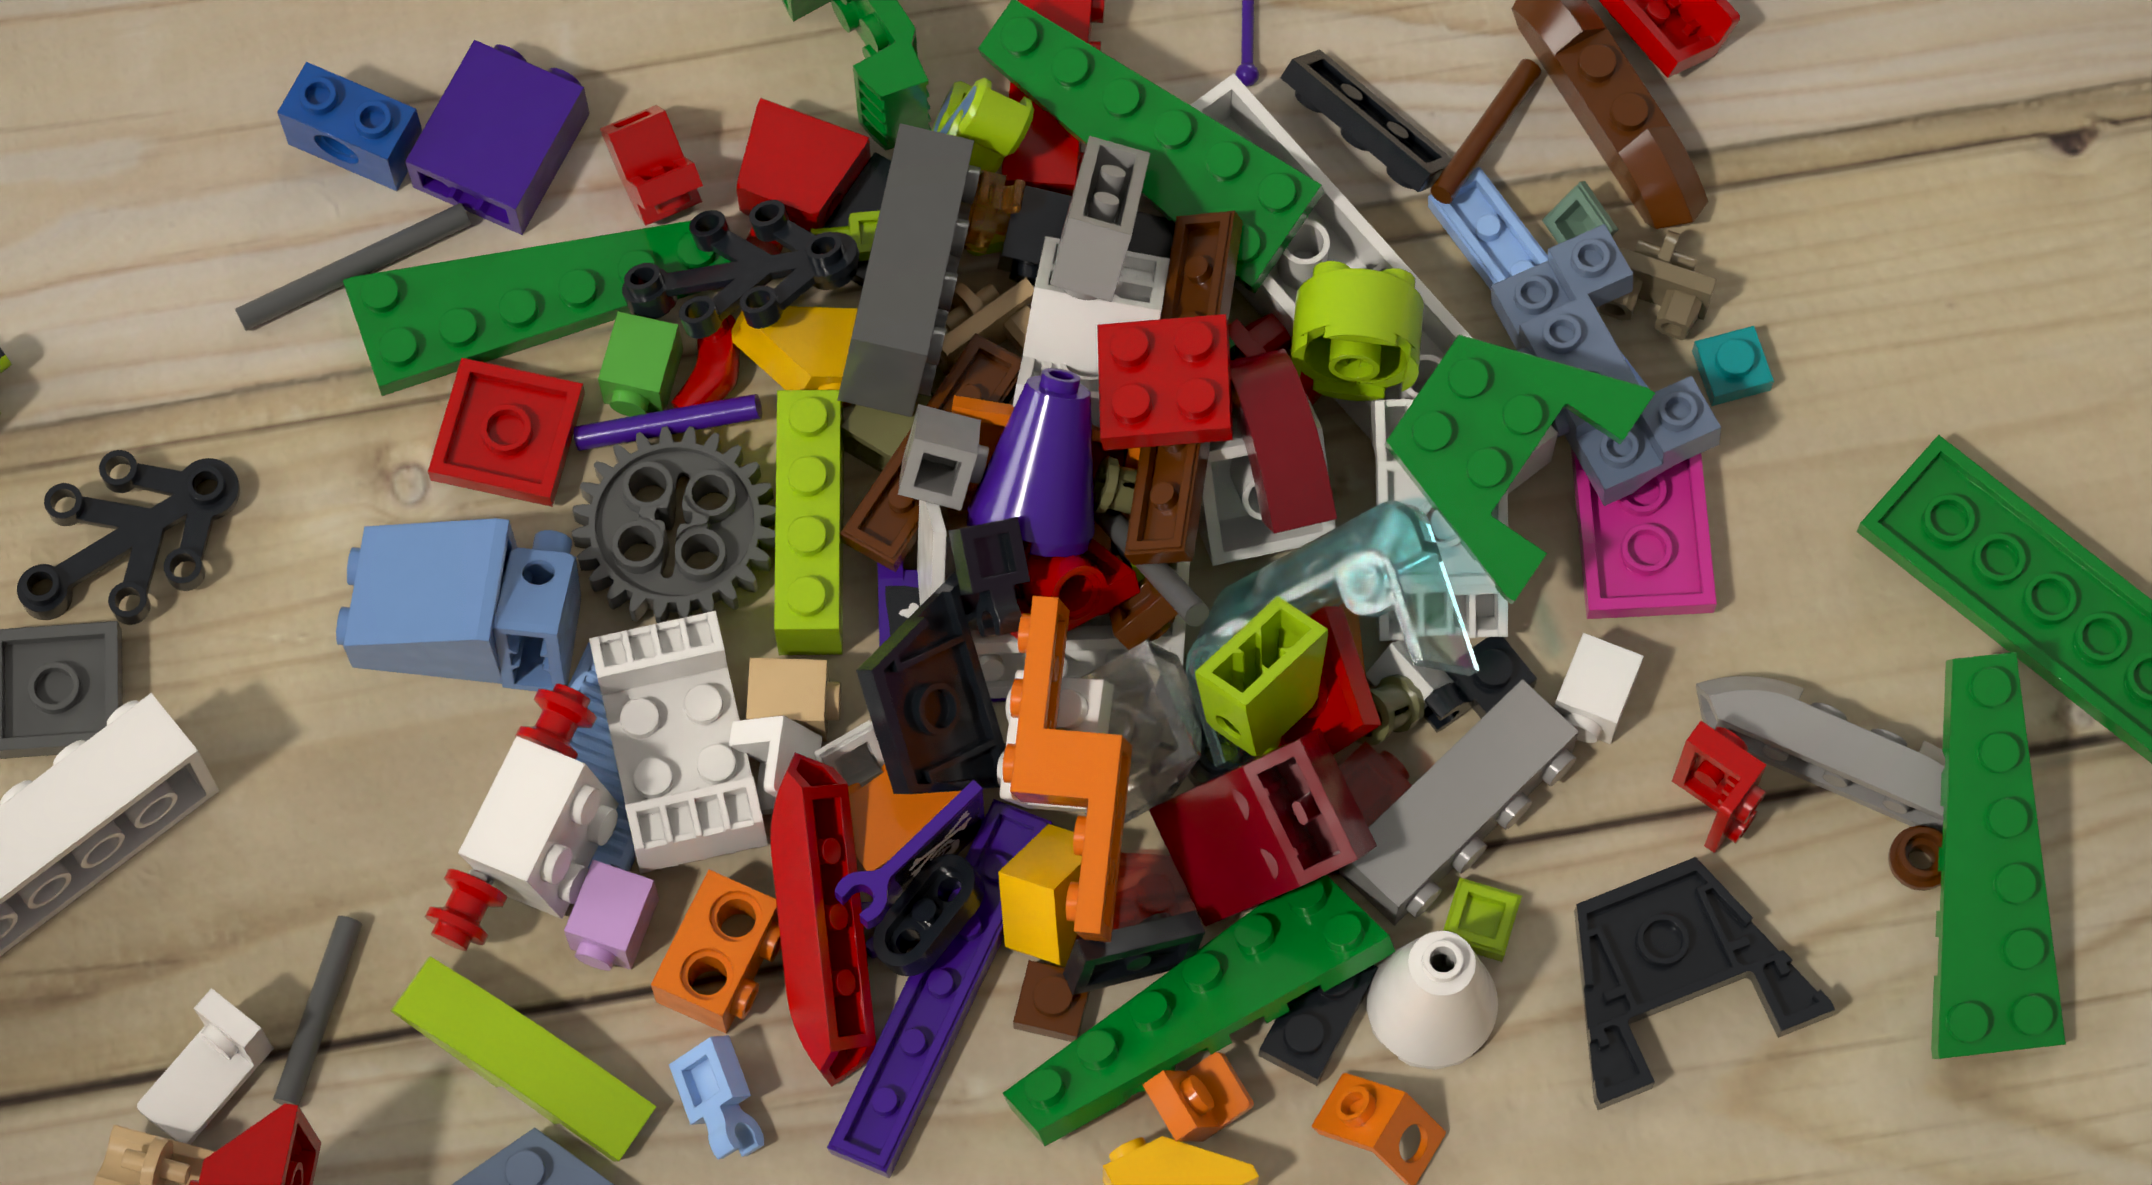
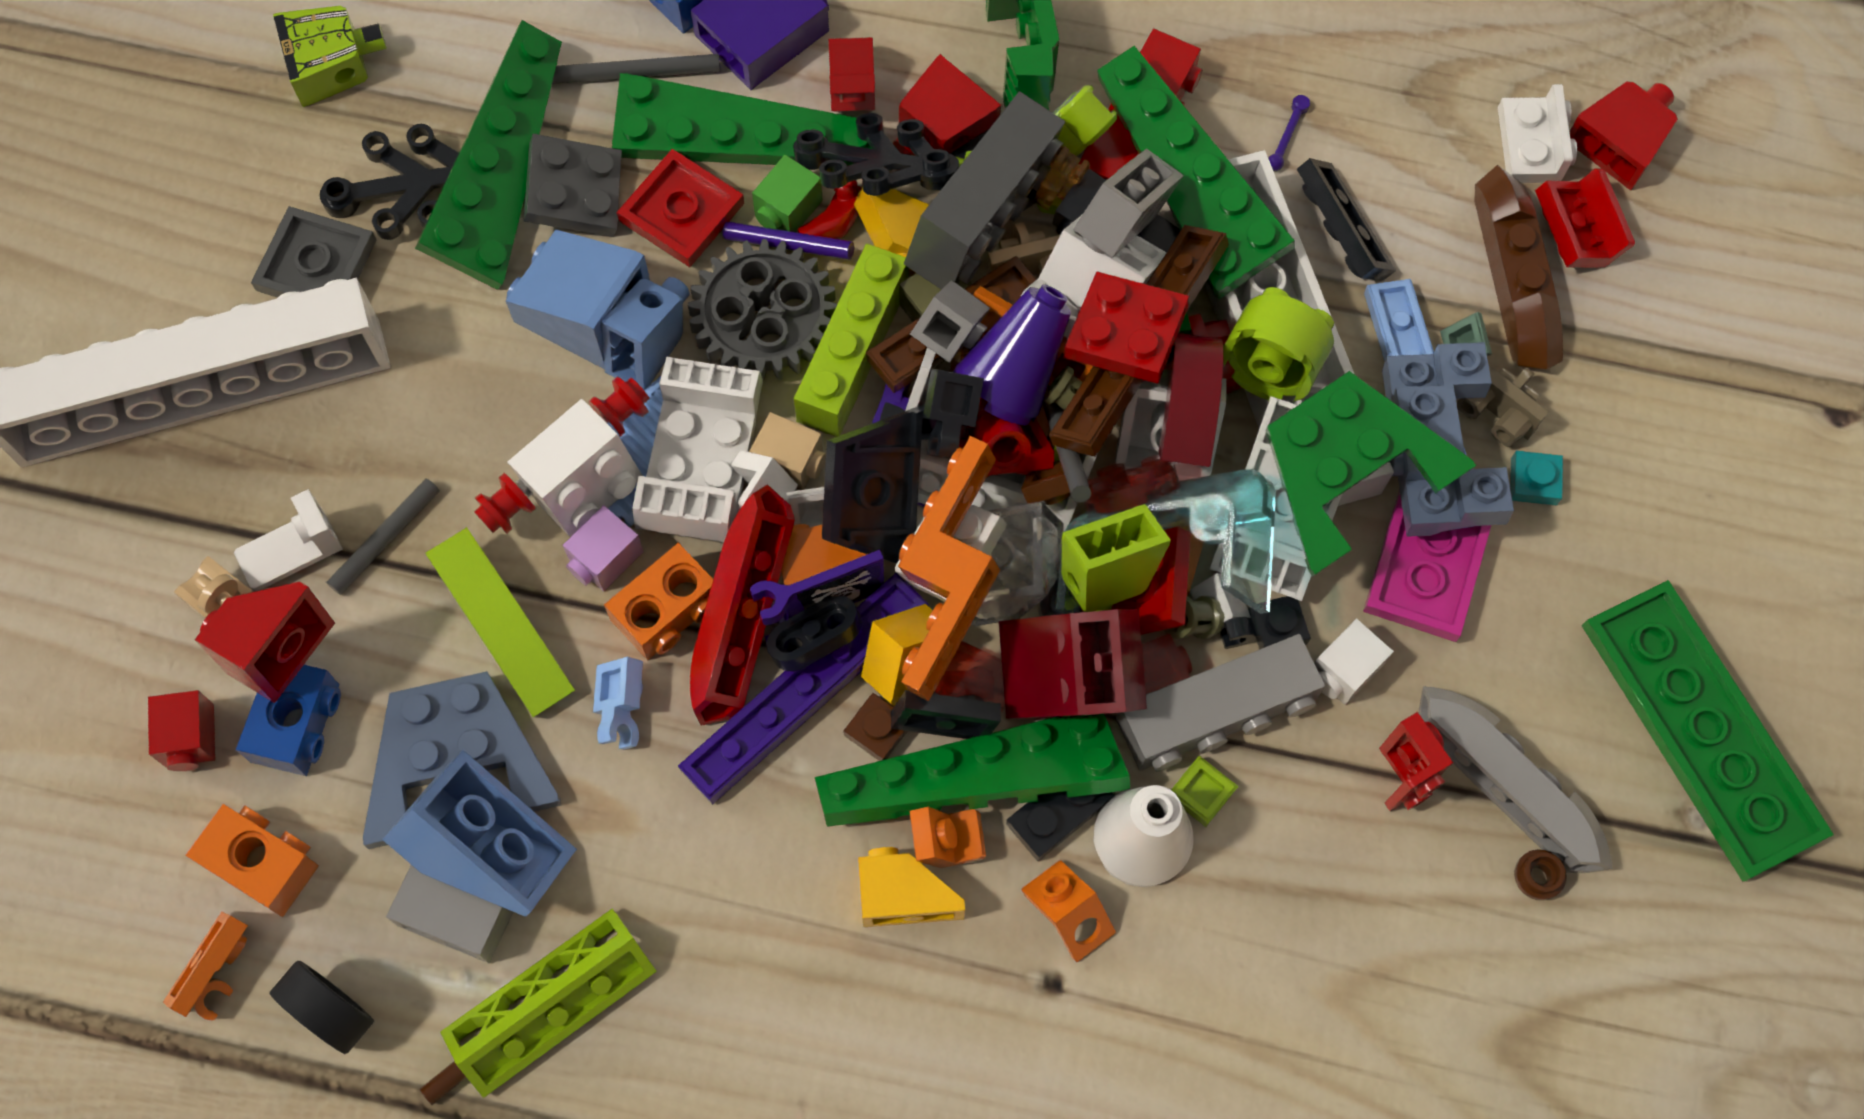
camera: 20 degrees right, 0 degrees up
(241, 501) = (486, 187): none -> green wing
(352, 457) = (572, 185): none -> dark grey plate
(1242, 580) = (1123, 488): none -> clear red plate
(1485, 131) = (1424, 256): reddish brown bar -> none
(1667, 945) = (1328, 863): black wing -> none
(1993, 922) = (1578, 943): green wing -> none

